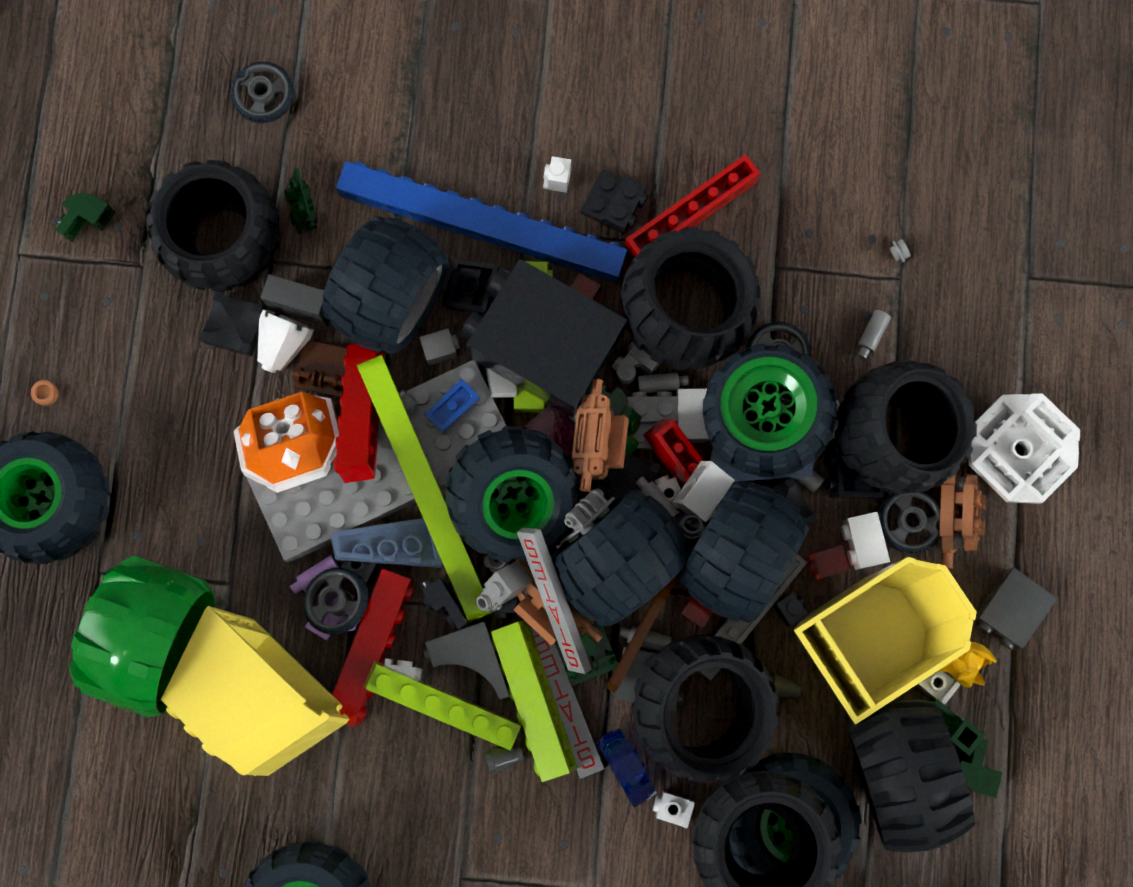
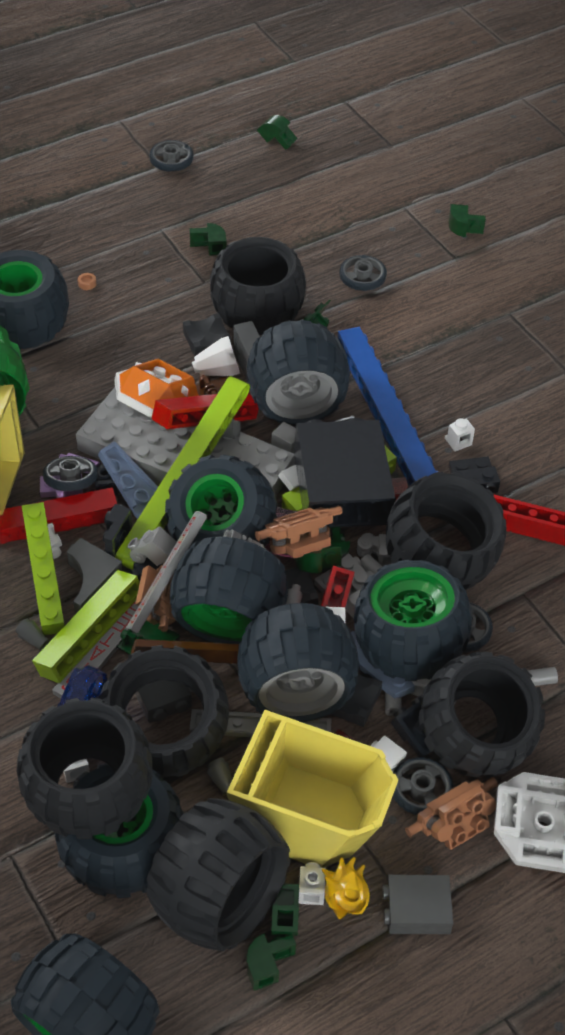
camera: 50 degrees right, 30 degrees down
(452, 406) = (254, 453): blue plate -> none
(696, 613) = (233, 687): clear red brick -> none

